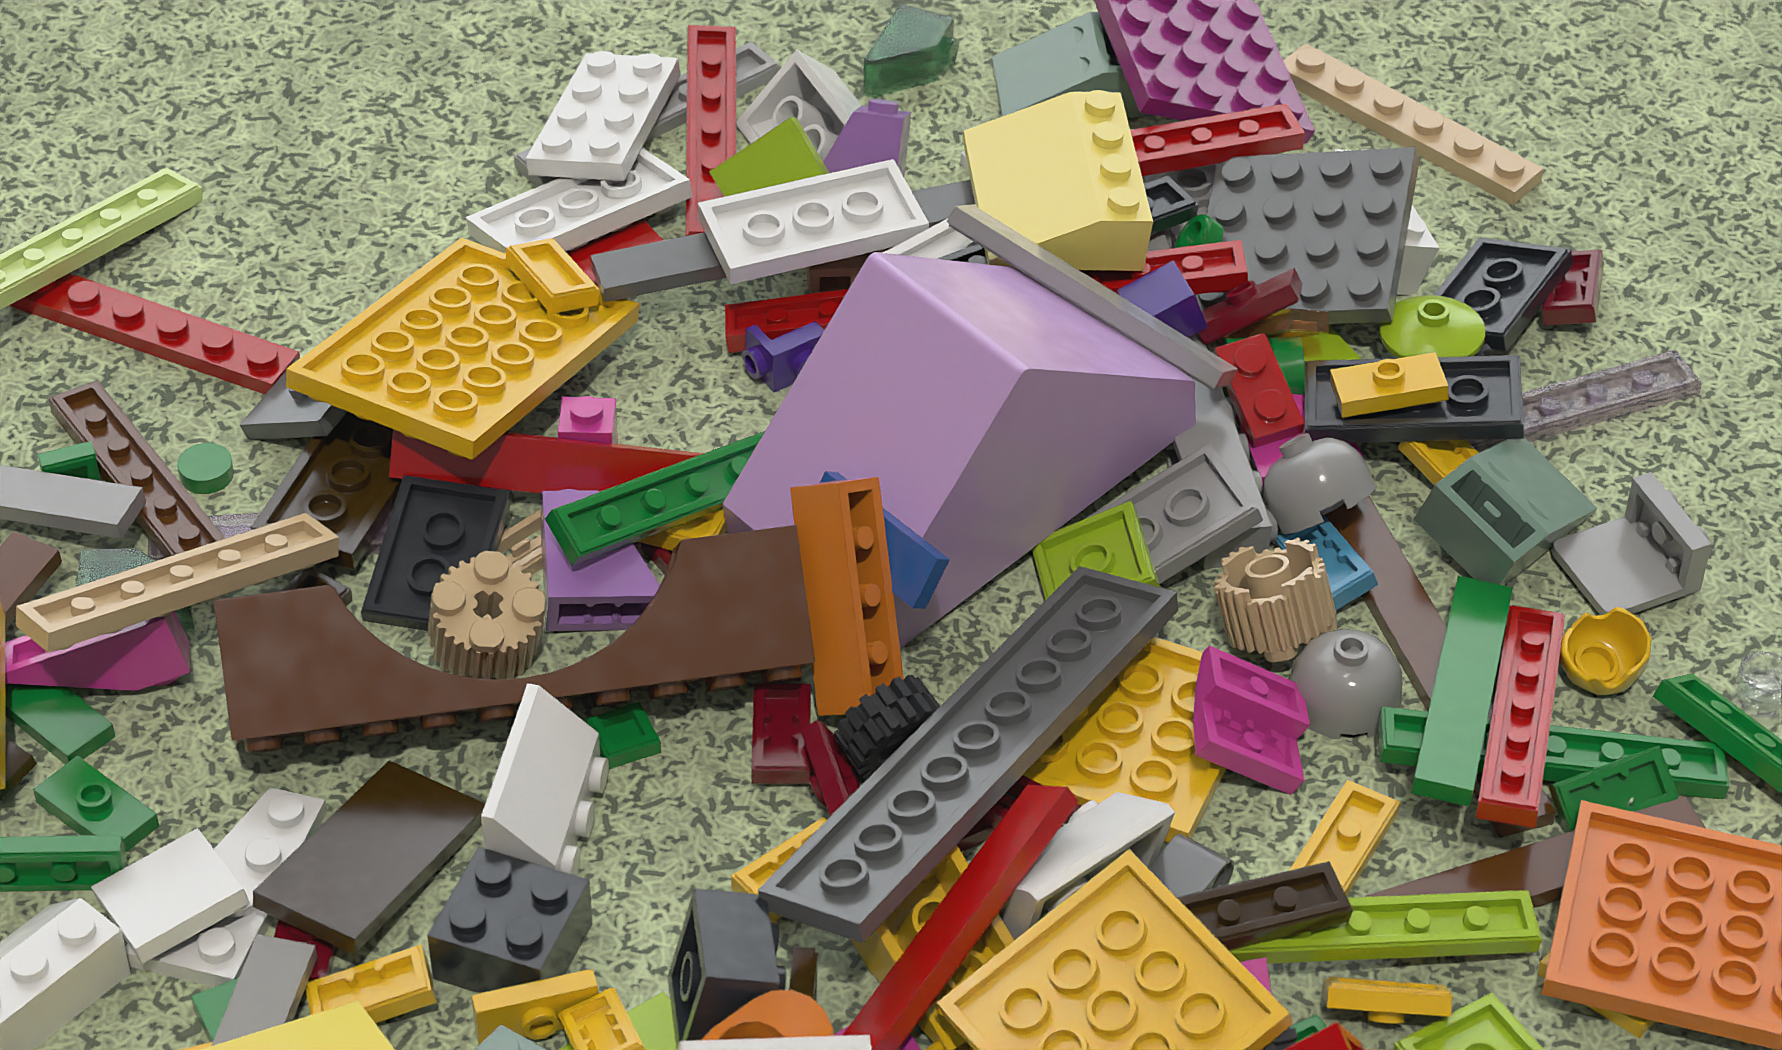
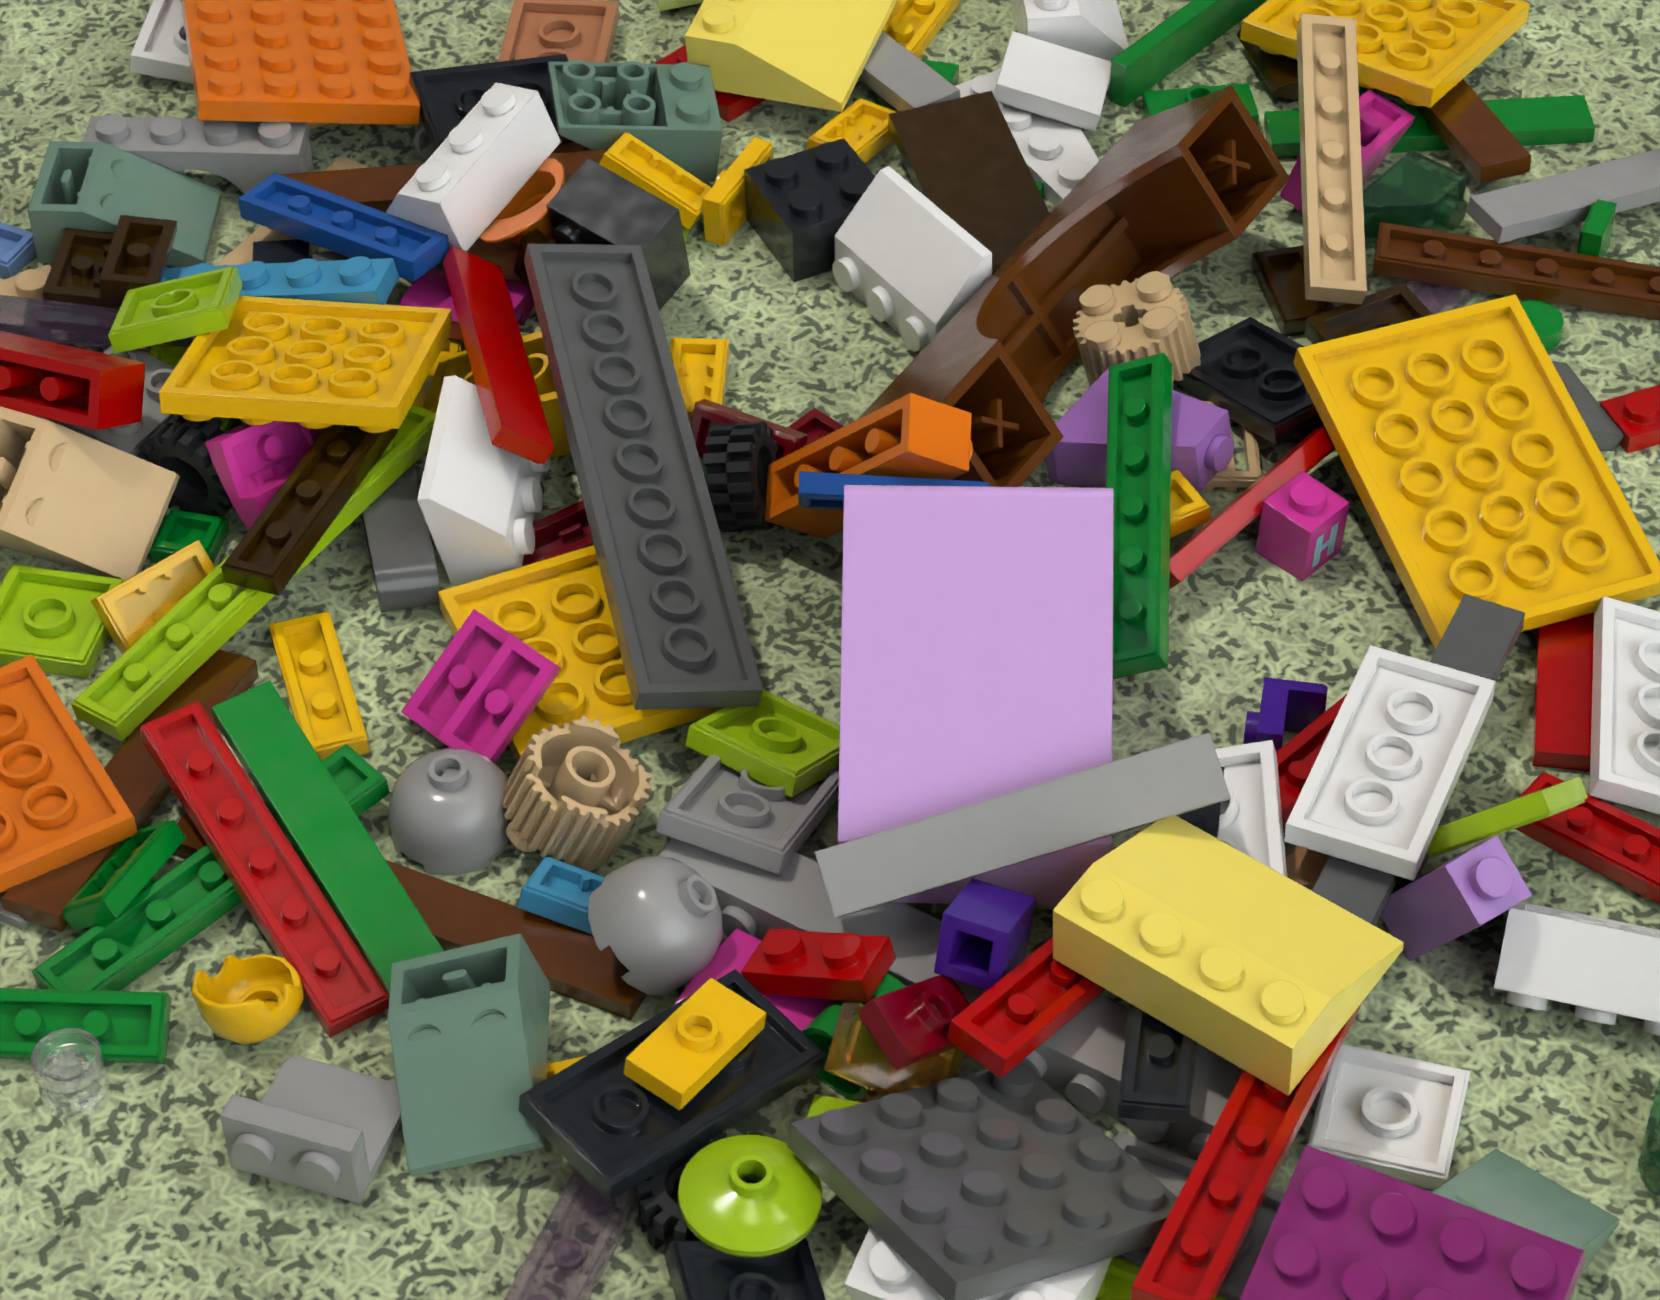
camera: 135 degrees right, 0 degrees up
(552, 275) = (1534, 584): yellow tile -> none
(1200, 231) = (1084, 1098): green tile -> none

